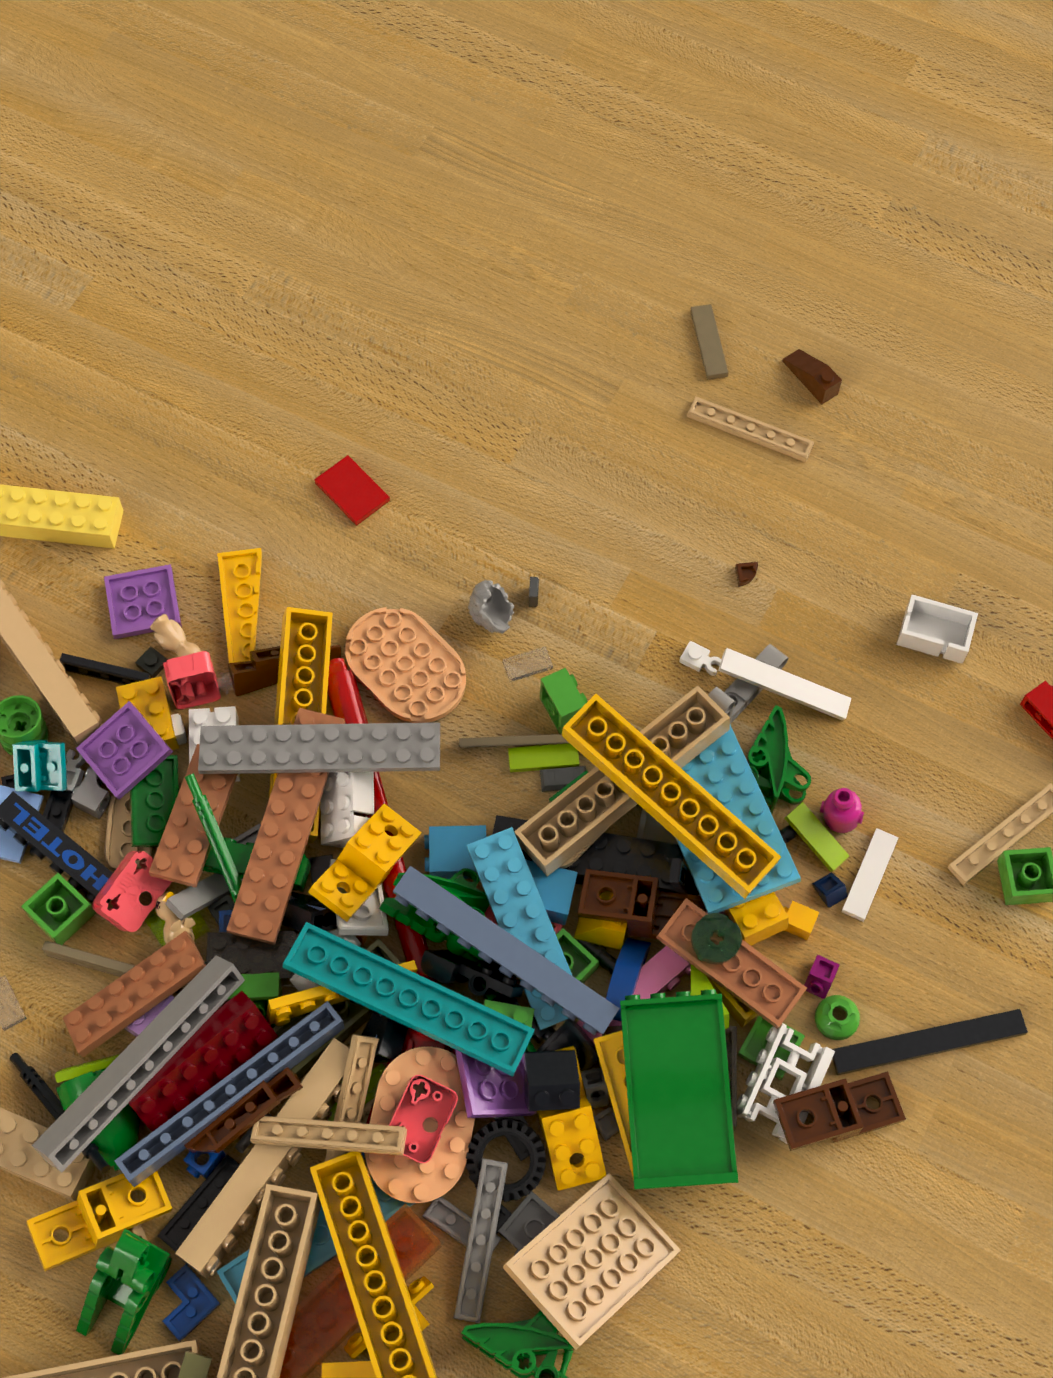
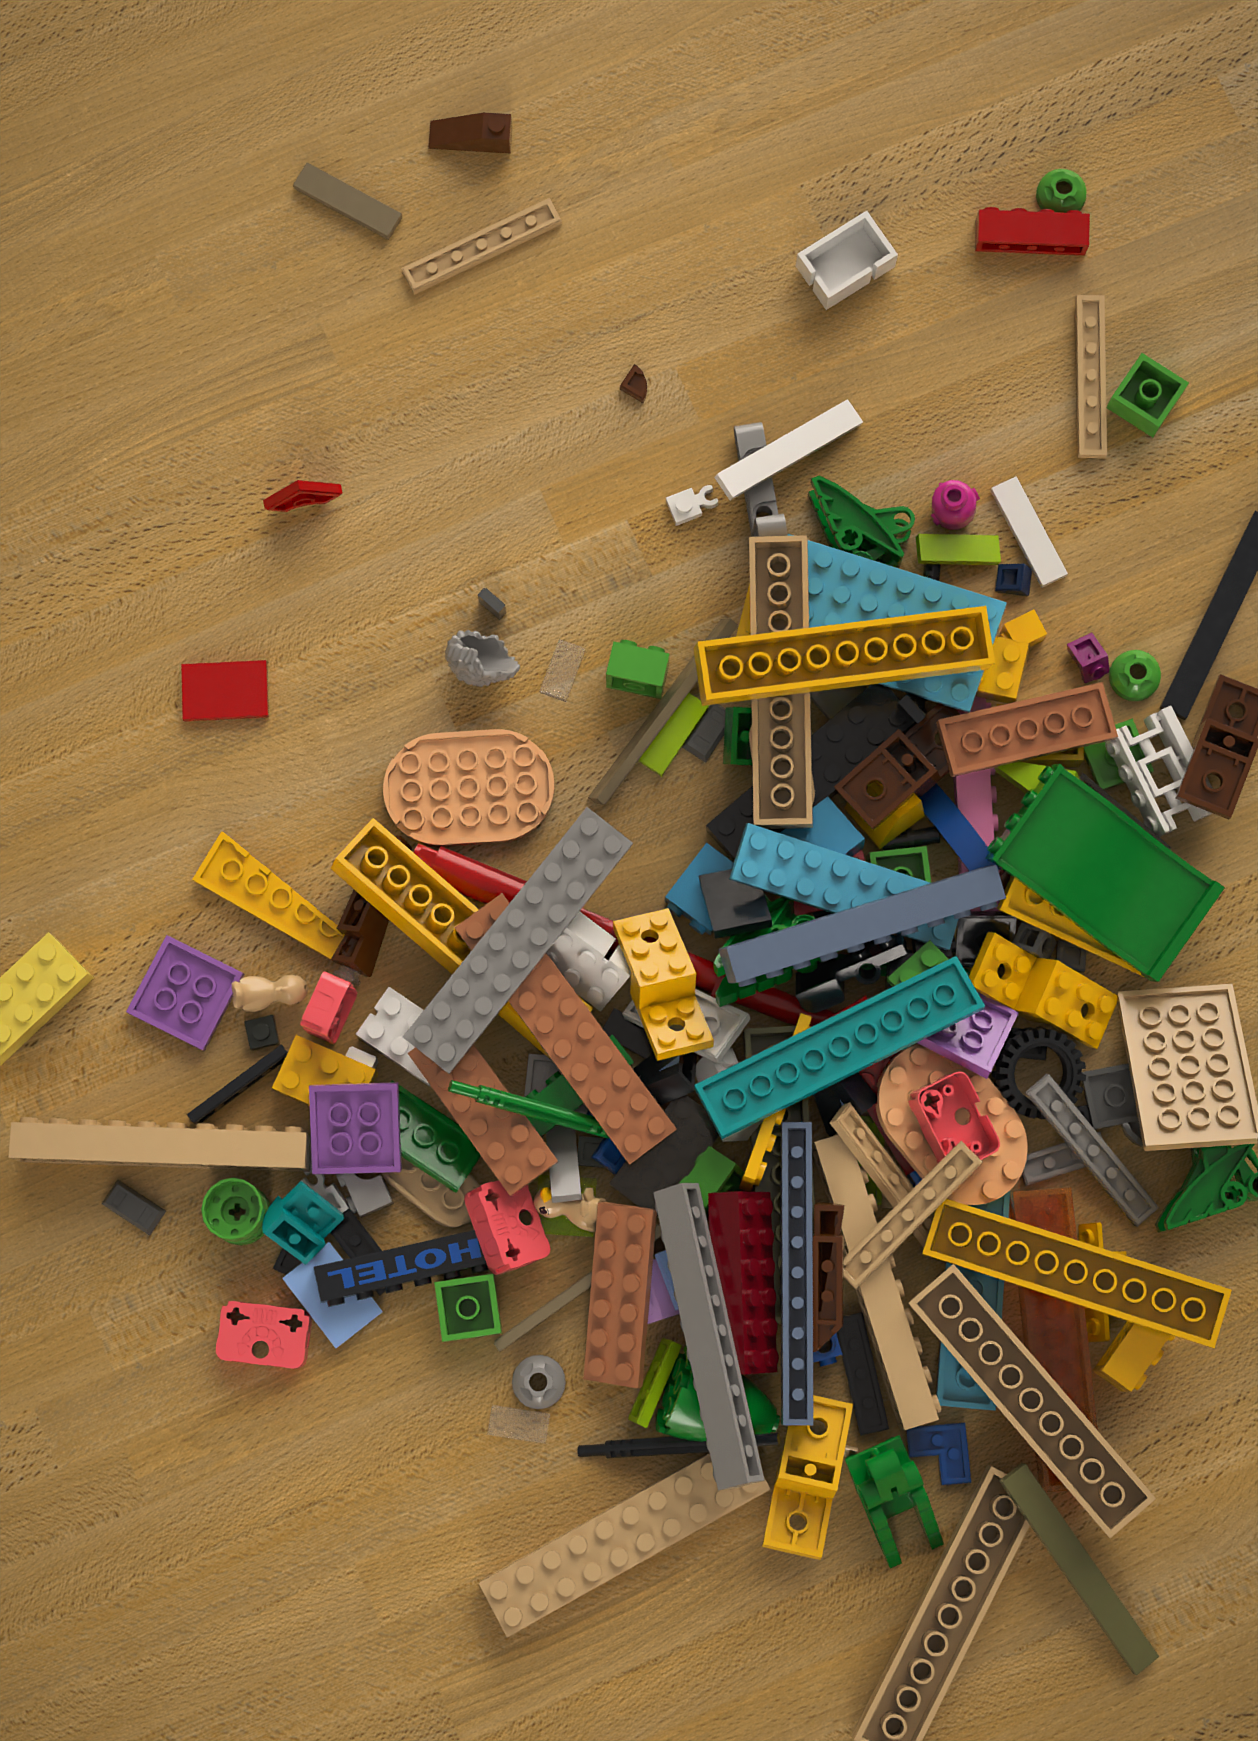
camera: 50 degrees left, 15 degrees up
(50, 1002) = (555, 1382): none -> light grey piece
(451, 865) = (733, 905): none -> black tile
(506, 438) = (302, 494): none -> red tile
(551, 1080) = (1010, 977): black slope -> none
(725, 928) = (984, 730): clear green plate -> none

